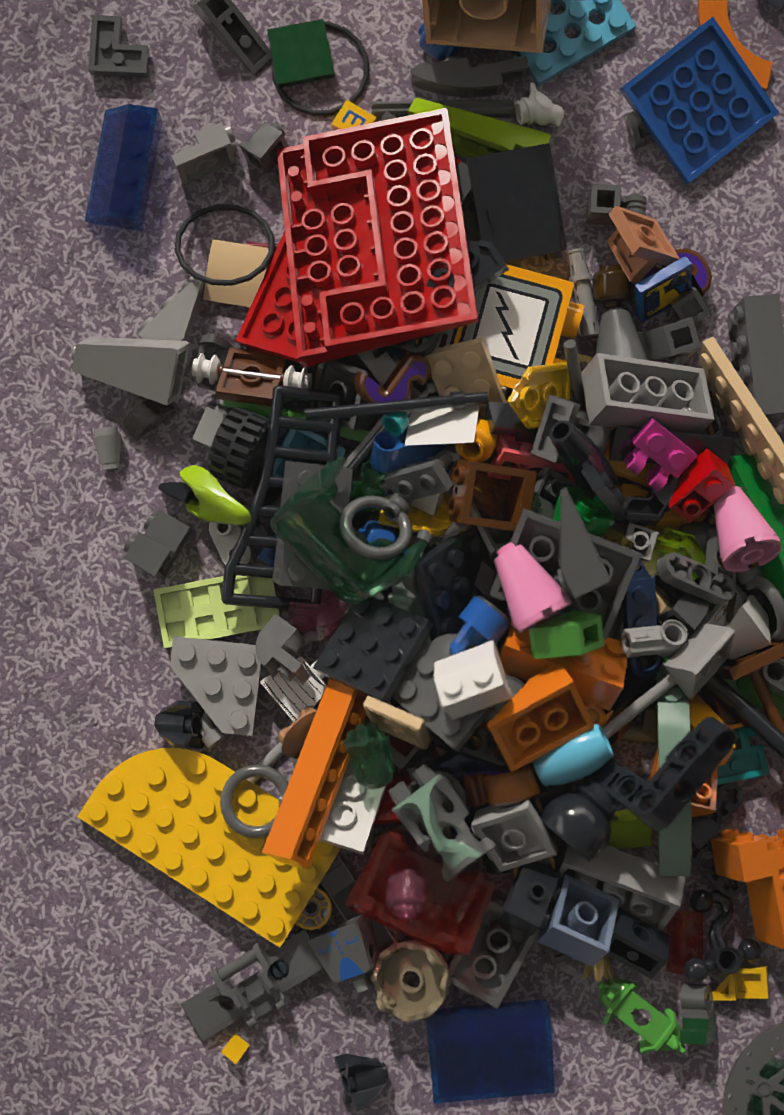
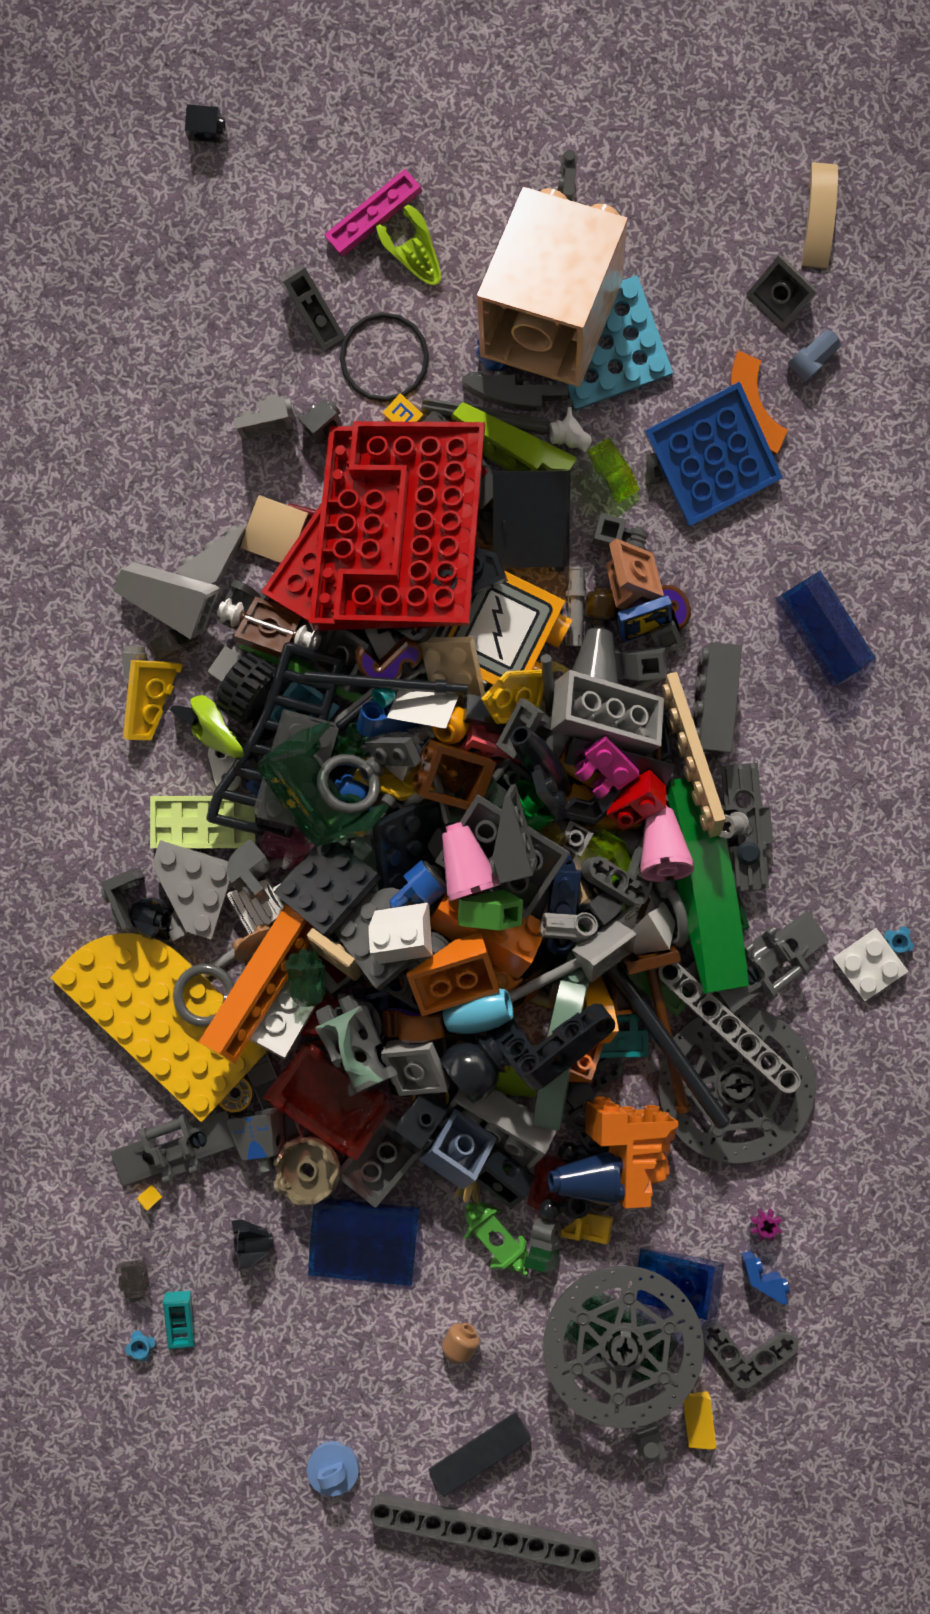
camera: 15 degrees right, 5 degrees up
(111, 57) = (197, 309): dark grey plate -> none
(124, 167) = (192, 415): clear blue slope -> none
(129, 478) = (146, 695): none -> yellow wing
(140, 690) = (113, 894): none -> dark grey bracket
(159, 545) = (162, 759): dark grey brick -> none
(187, 268) = (259, 538): black piece -> none
(300, 53) = (368, 340): dark green tile -> none
(406, 894) = (315, 1099): clear pink head -> none
(593, 135) = (614, 469): none -> clear neon green slope
(737, 925) = (590, 1179): none -> dark blue cone

